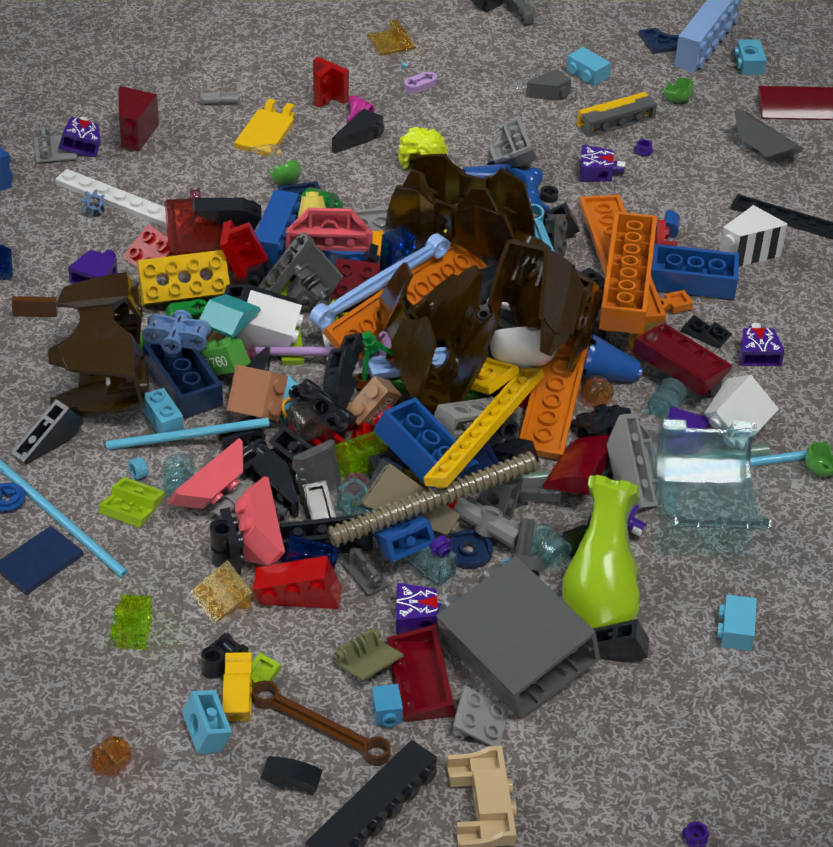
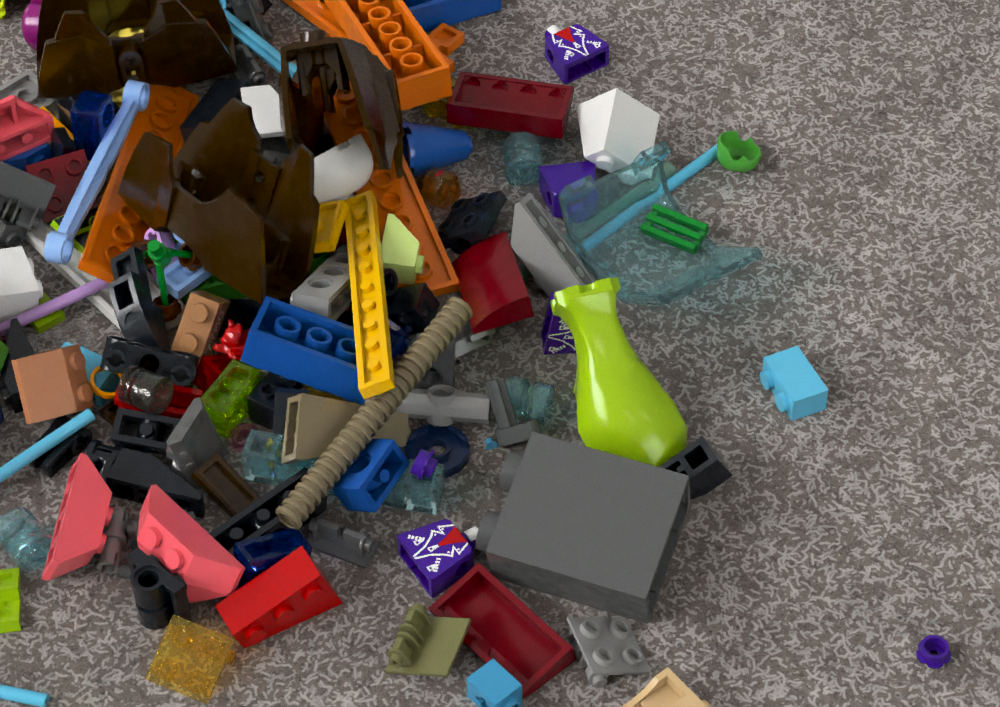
camera: 30 degrees left, 5 degrees up
(532, 416) = (401, 251): none -> yellowish green slope
(574, 537) = (553, 372): black tile -> none
(712, 335) = (509, 62): black slope -> none
(725, 475) = (657, 210): none -> green tile

